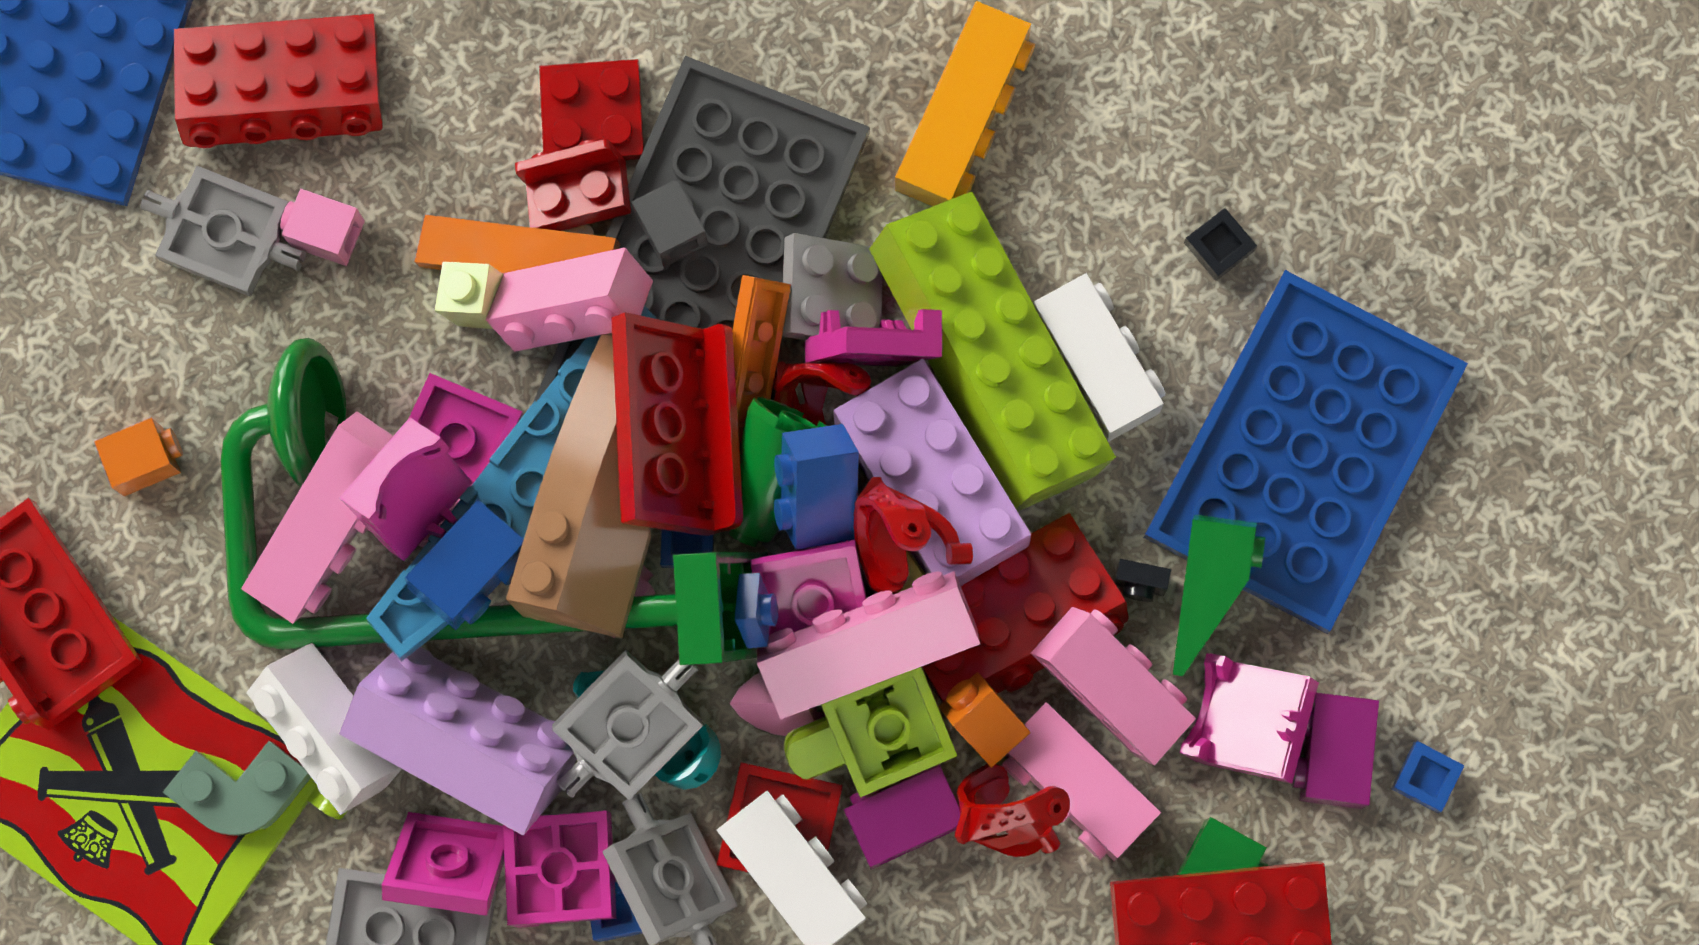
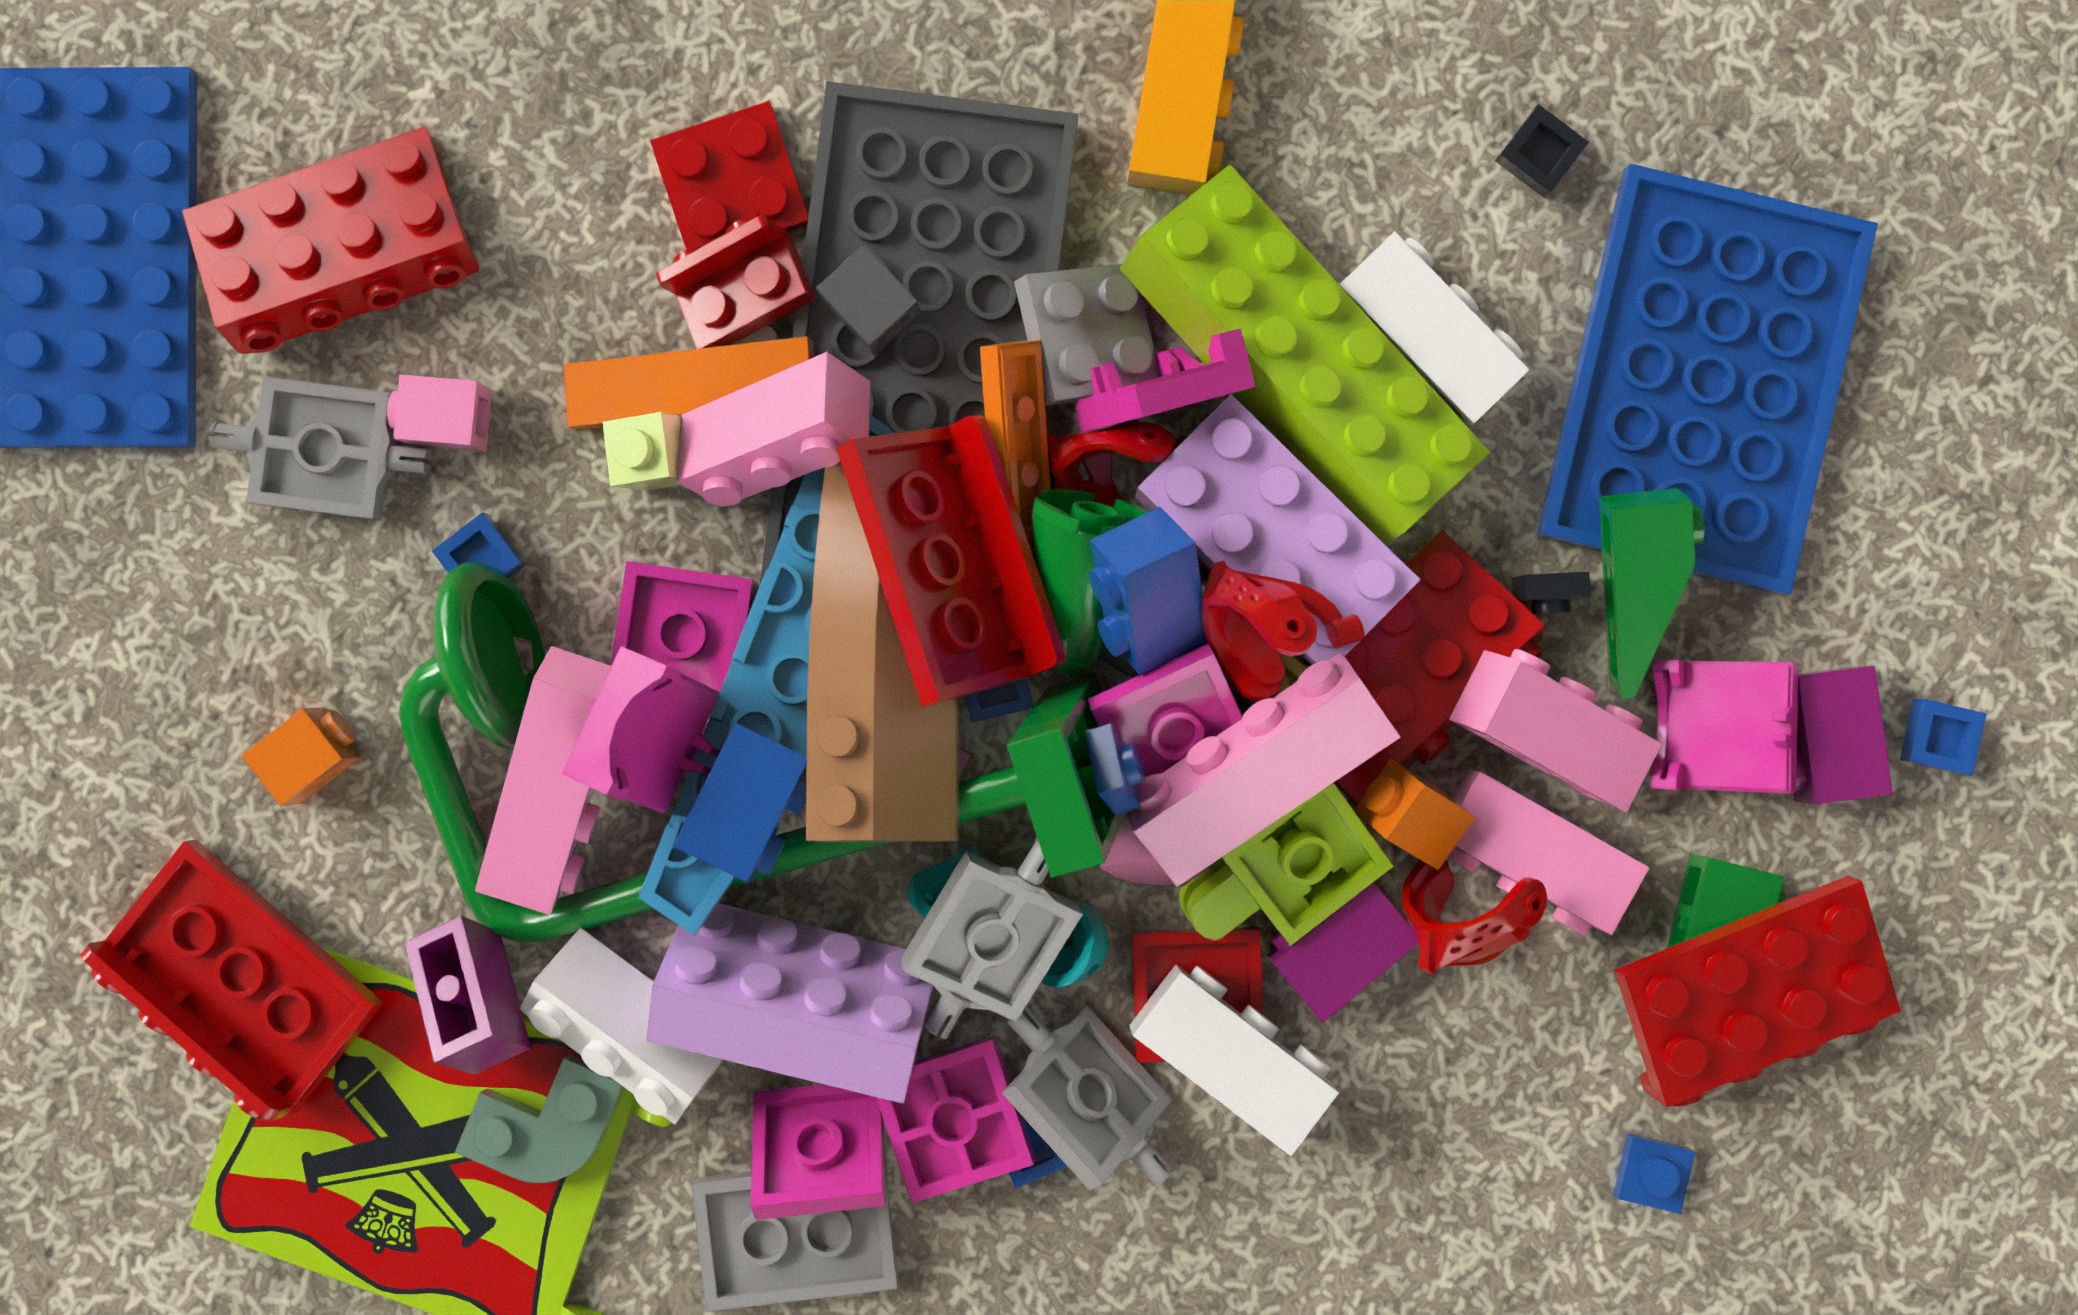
camera: 15 degrees left, 10 degrees up
(210, 669) = (467, 996): none -> magenta brick
(323, 329) = (480, 542): none -> blue plate

